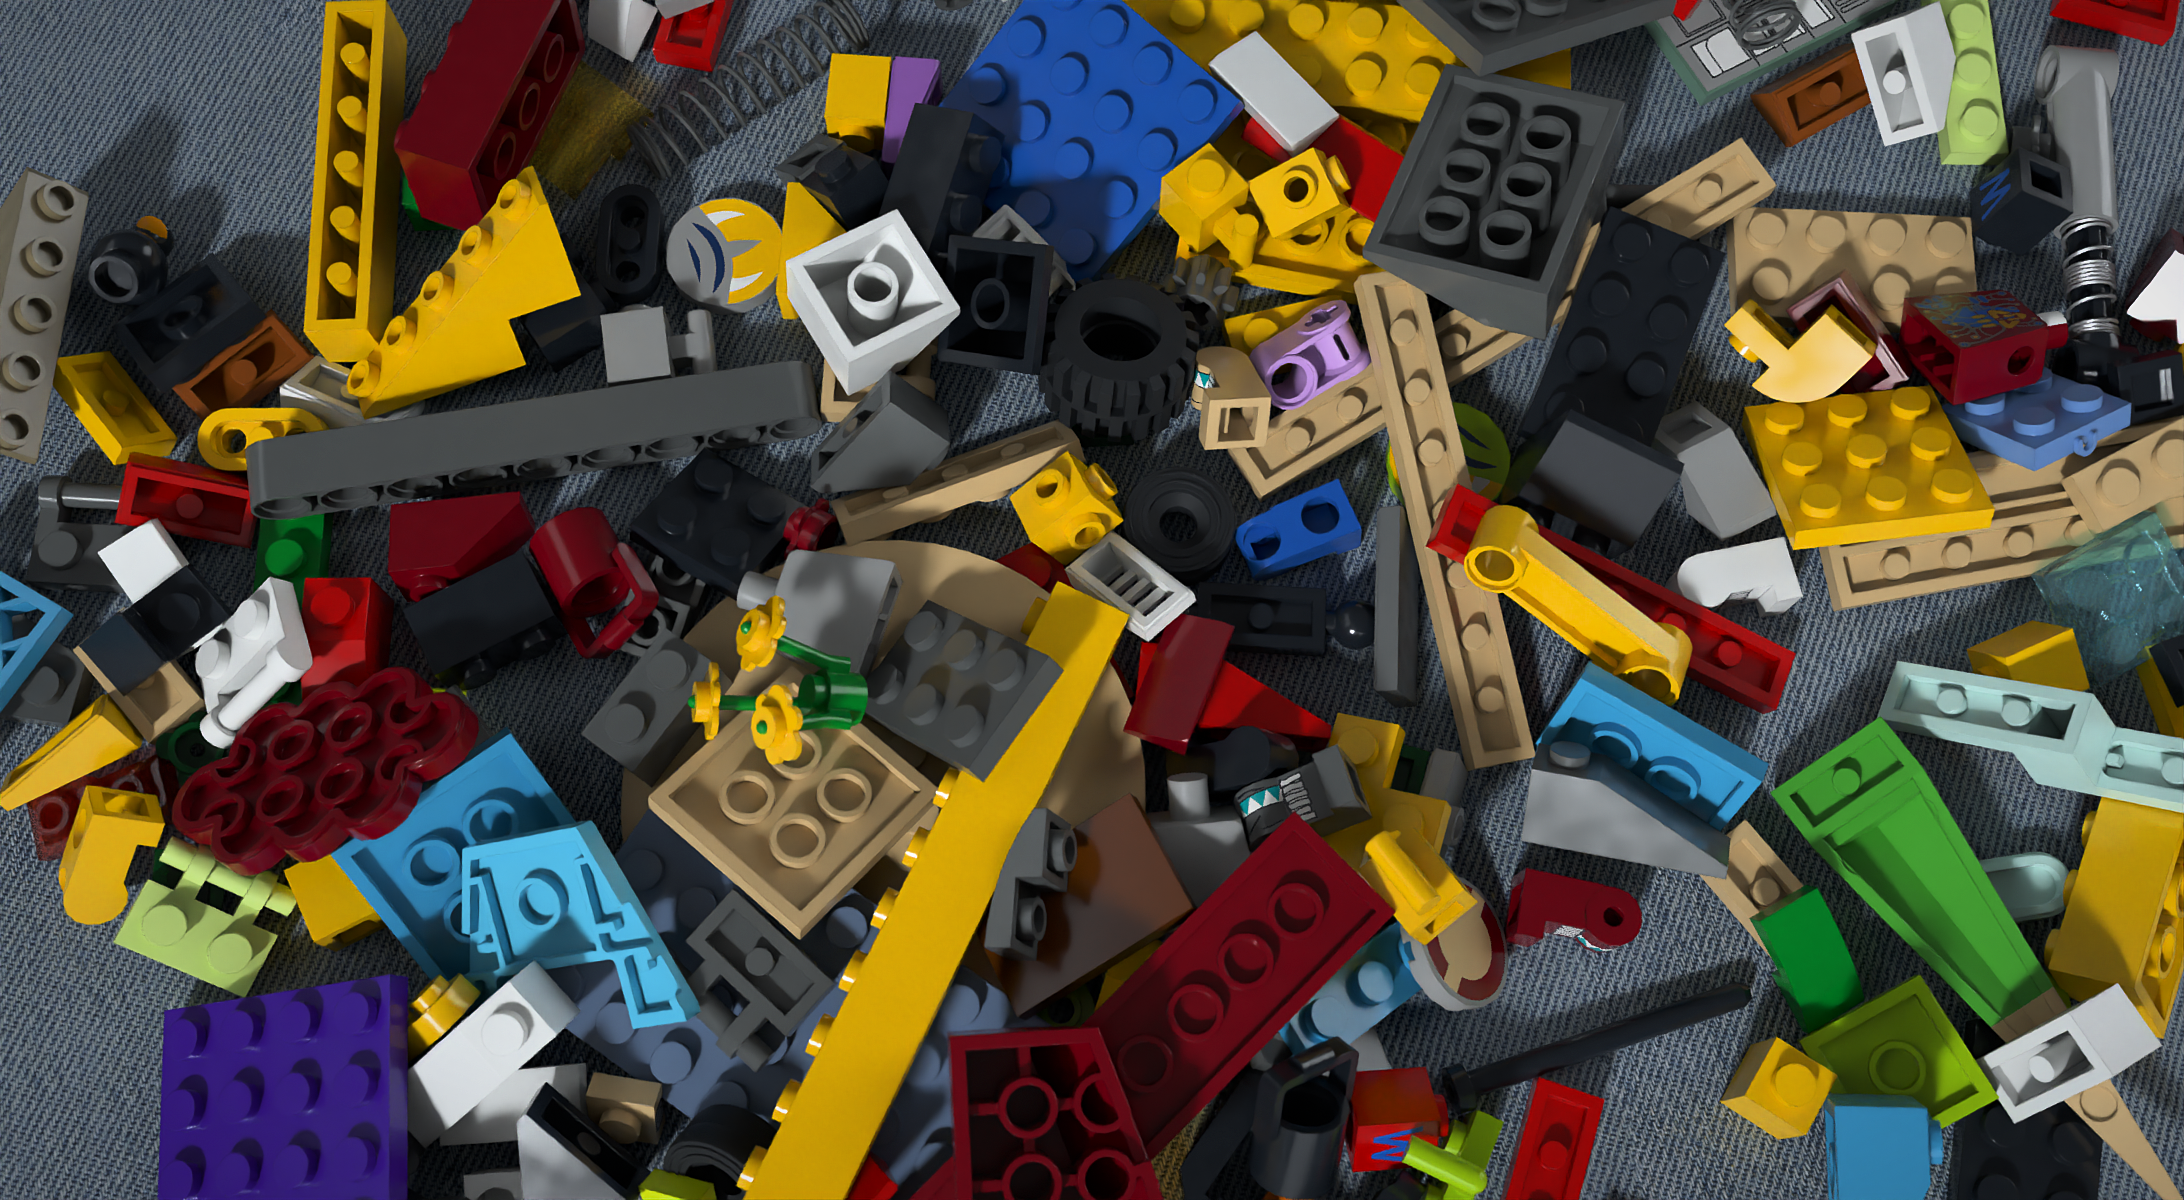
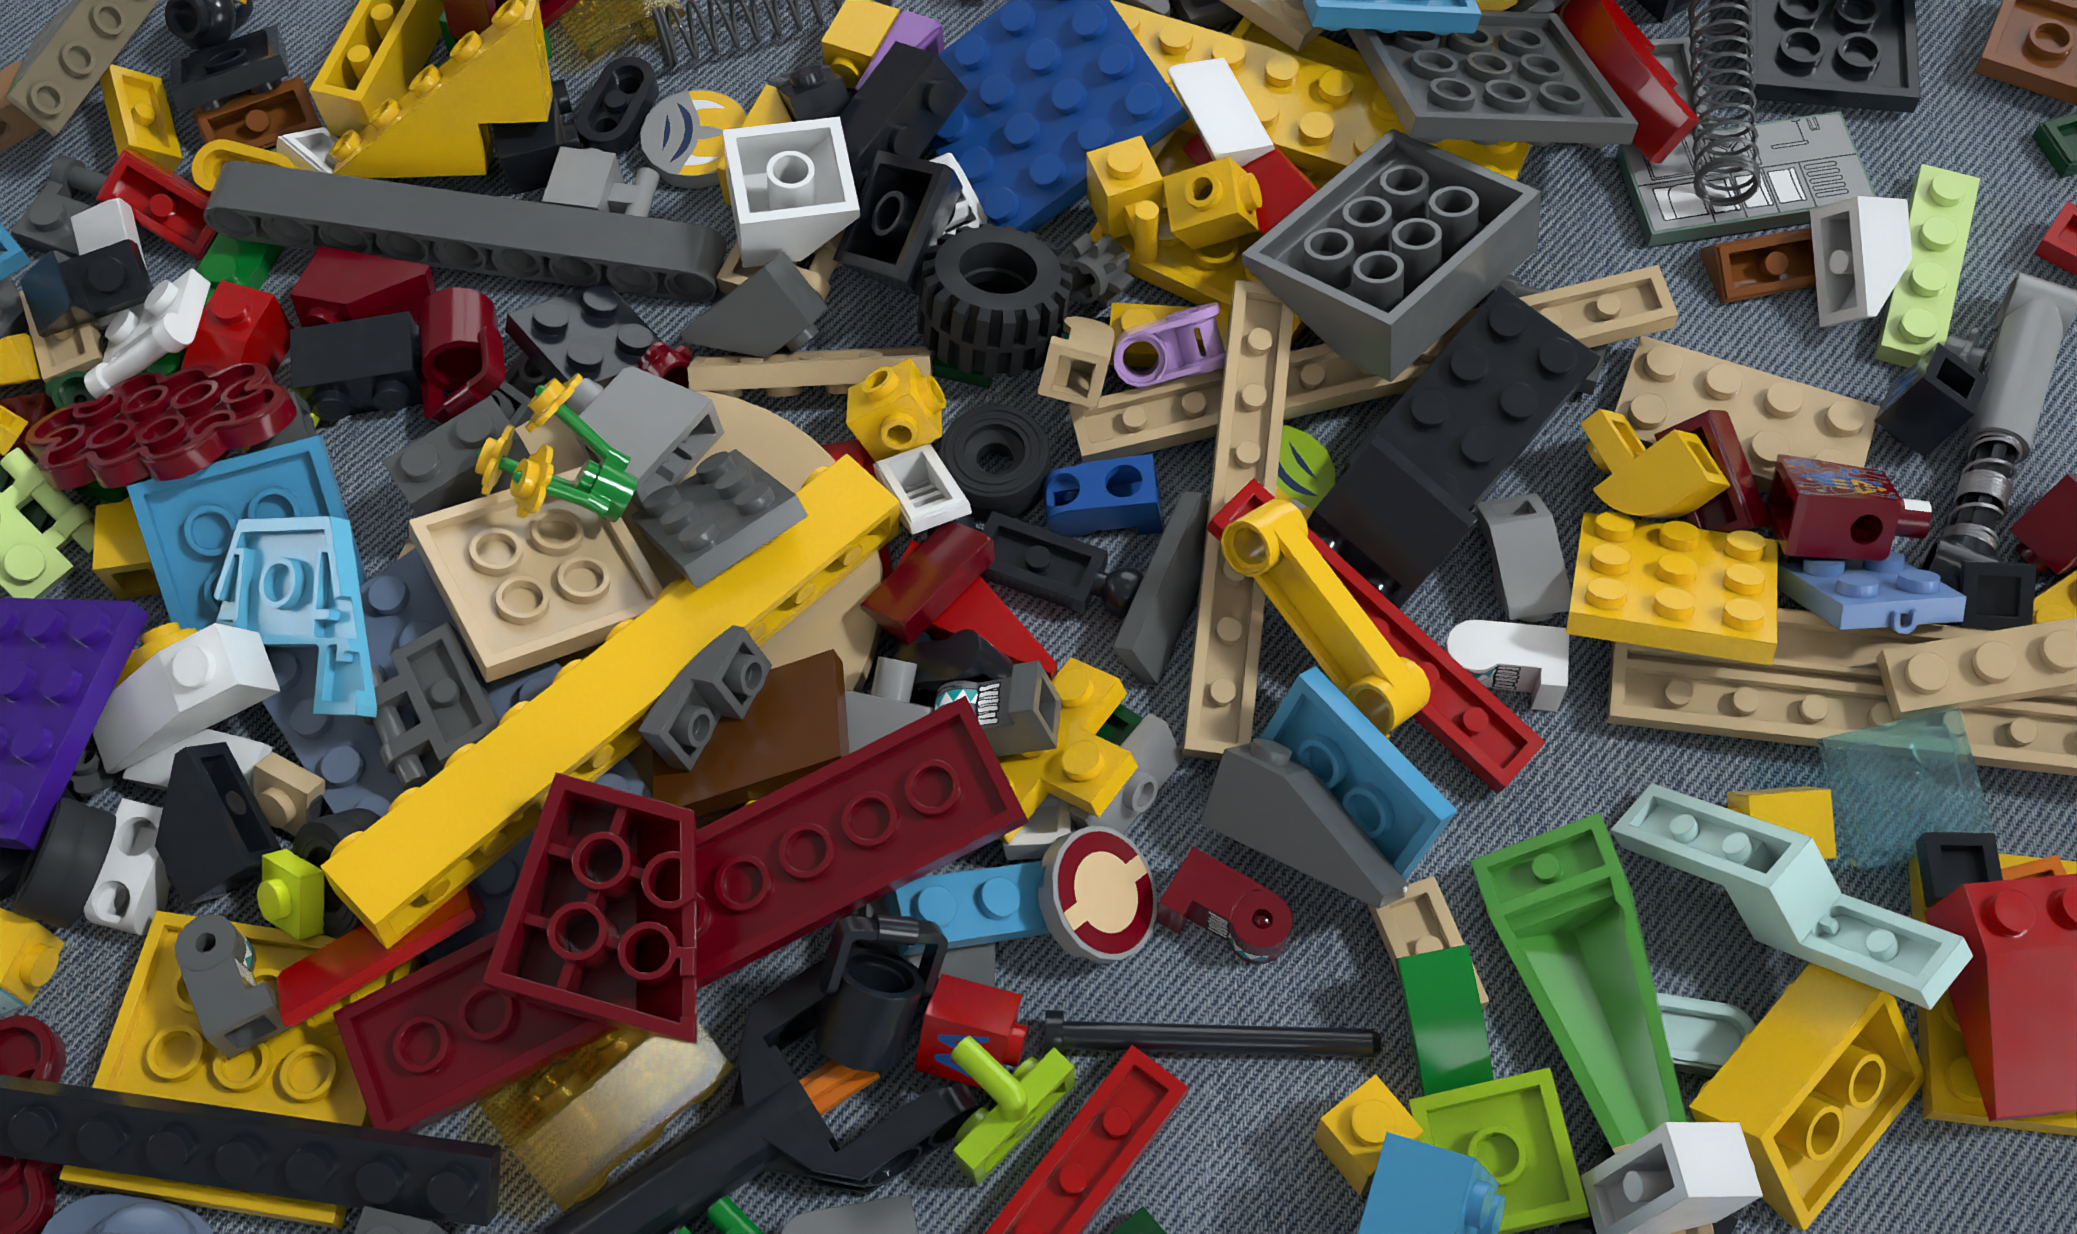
camera: 25 degrees right, 10 degrees down
(1415, 883) = (1060, 803): yellow brick -> none

